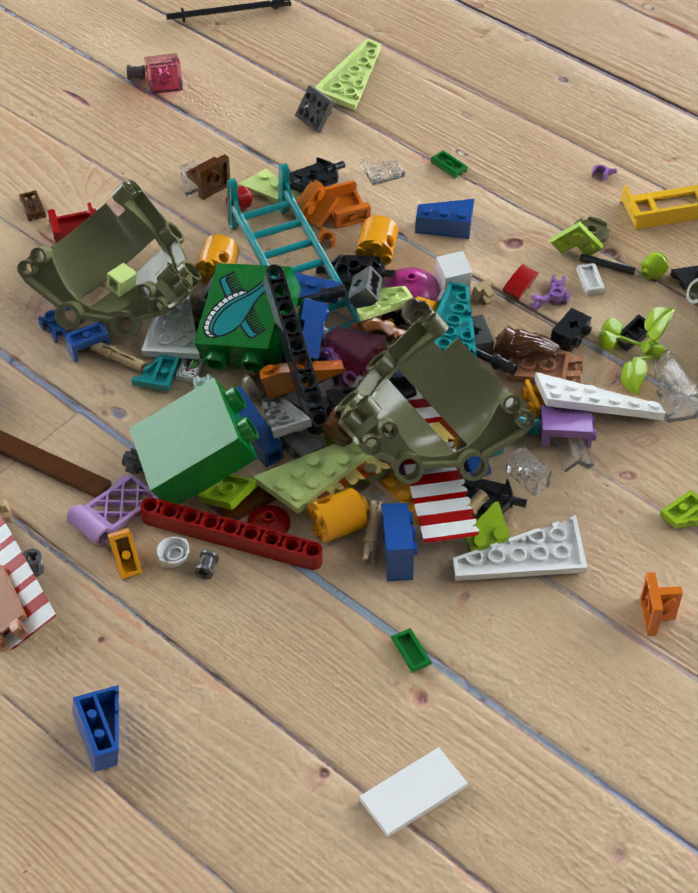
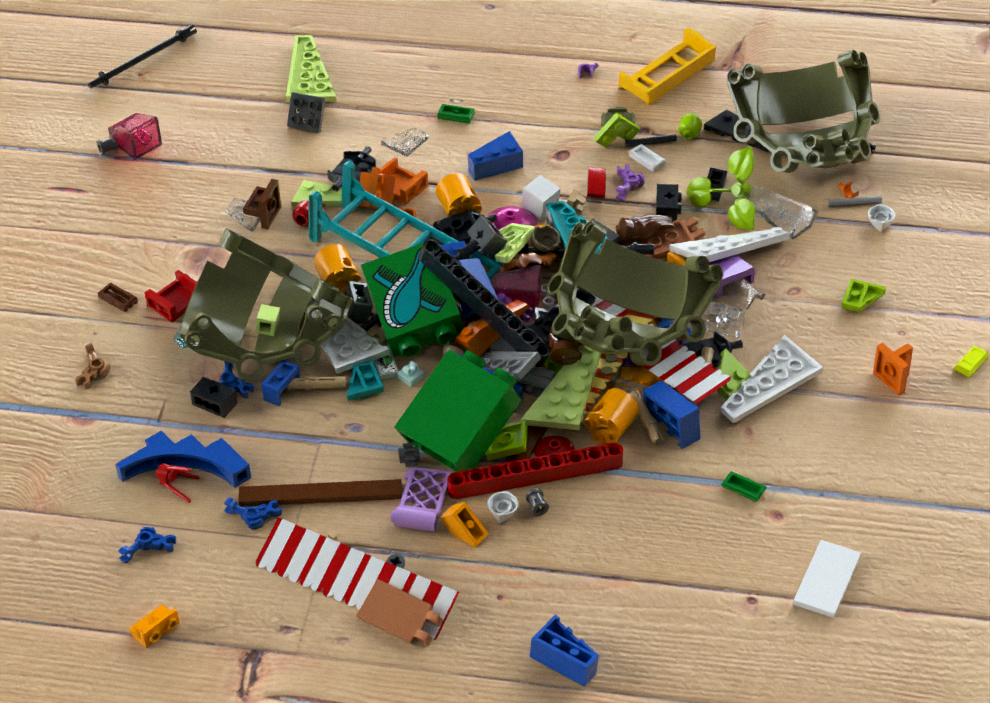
camera: 30 degrees left, 5 degrees down
(25, 328) = (213, 397): none -> black brick

